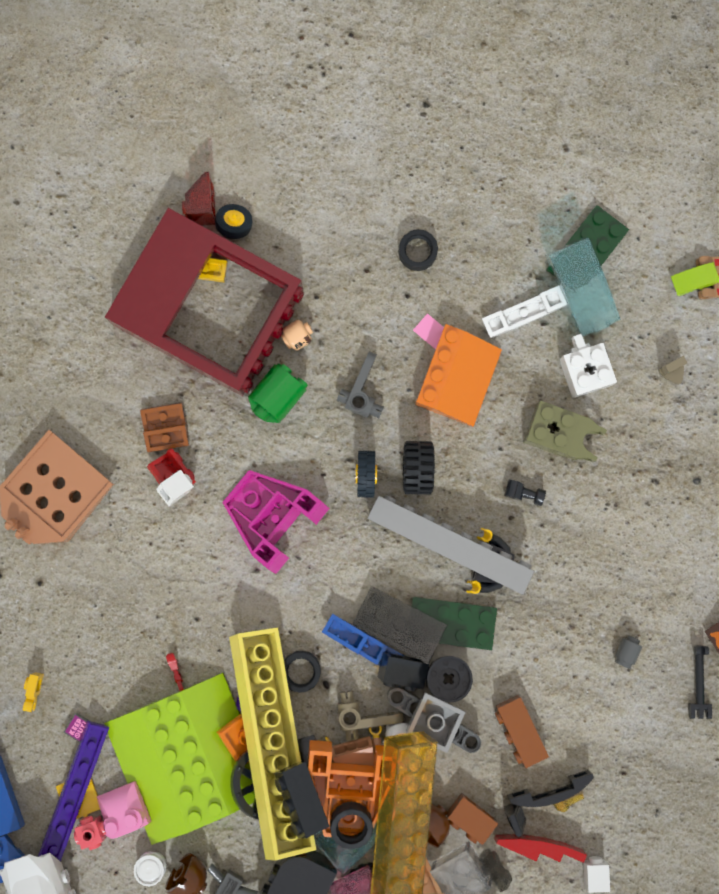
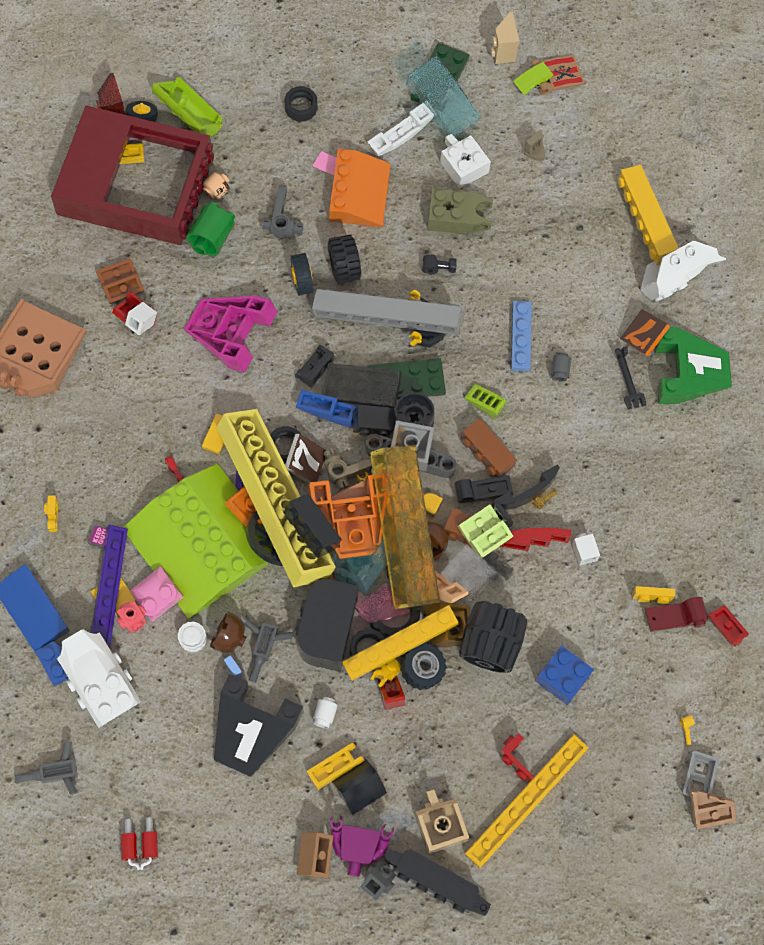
camera: 15 degrees left, 15 degrees down
(222, 645) = (213, 440): none -> yellow tile
(288, 226) = (188, 106): none -> lime container
(317, 697) = (305, 459): none -> reddish brown tile
(354, 583) = (315, 366): none -> black hinge
(354, 841) = (375, 538): black tyre -> none
(443, 777) = (432, 503): none -> yellow tile
(491, 835) = (485, 531): none -> yellowish green slope
(503, 777) = (481, 490): none -> black plate
(545, 685) = (493, 412): none -> lime slope
(594, 600) = (521, 336): none -> medium blue plate
(677, 226) = (505, 41): none -> tan slope

